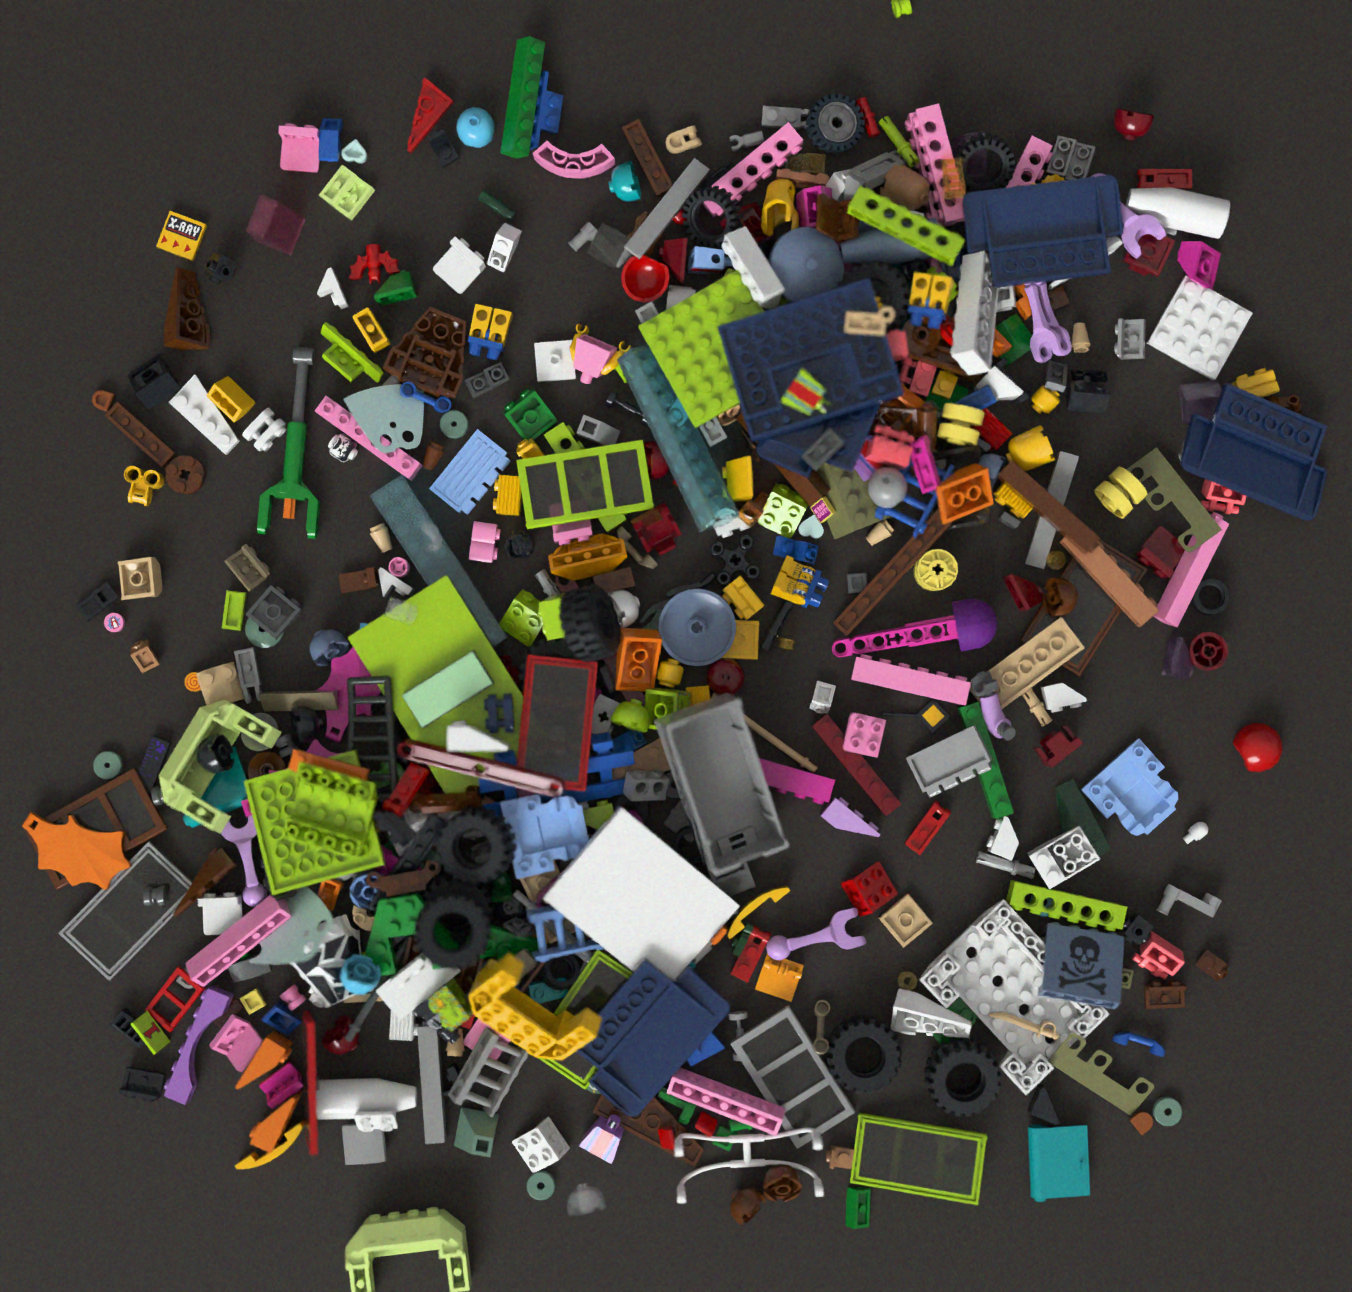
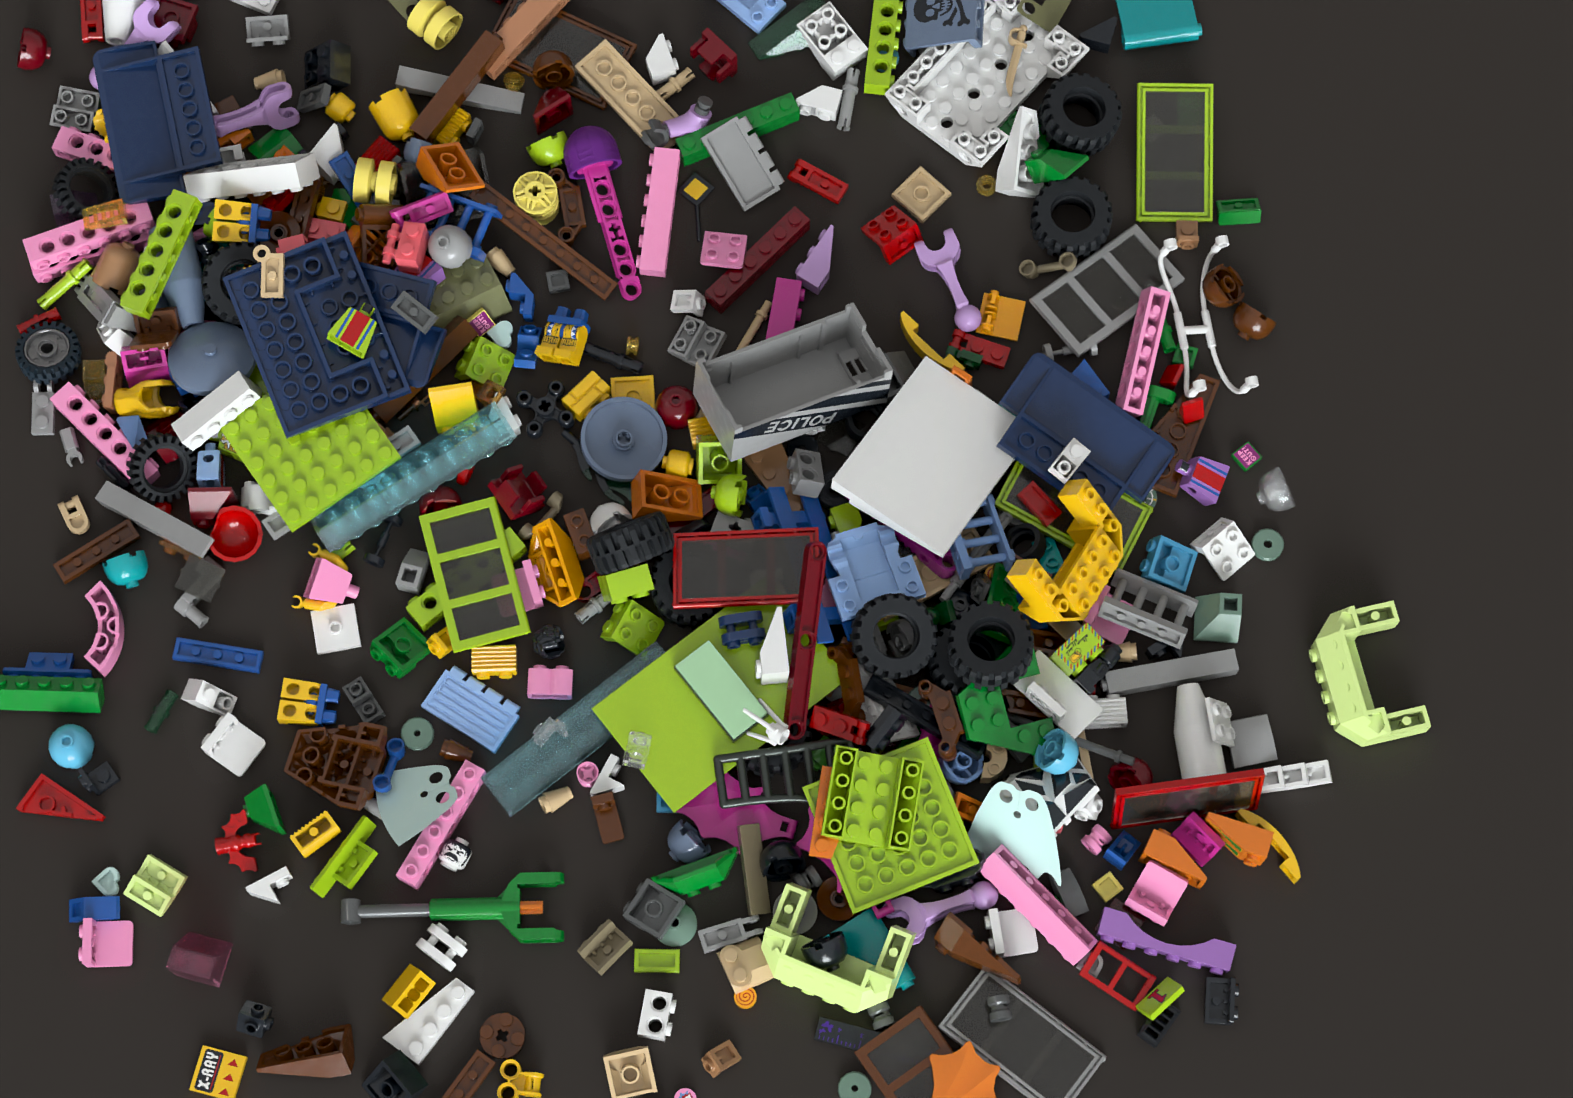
camera: 95 degrees left, 15 degrees down
(187, 600) = (650, 1014): none -> white brick
(296, 648) = (699, 874): none -> green wedge
(329, 1168) = (1296, 776): none -> white slope
(401, 731) = (776, 732): none -> white plant
(530, 1095) = (1168, 563): none -> dark azure plate
(543, 257) = (218, 655): none -> blue tile
(593, 989) = (1039, 504): none -> red tile
(620, 1021) = (1069, 460): none -> white slope
(623, 1179) = (1246, 456): none -> tile
(750, 194) = (132, 429): none -> medium blue slope
(783, 701) = (696, 341): none -> light grey slope
(850, 545) = (520, 292): none -> blue slope
(913, 1046) = (1053, 164): none -> green slope
(925, 601) = (571, 207): none -> reddish brown plate
(982, 586) = (548, 150): none -> lime cylinder

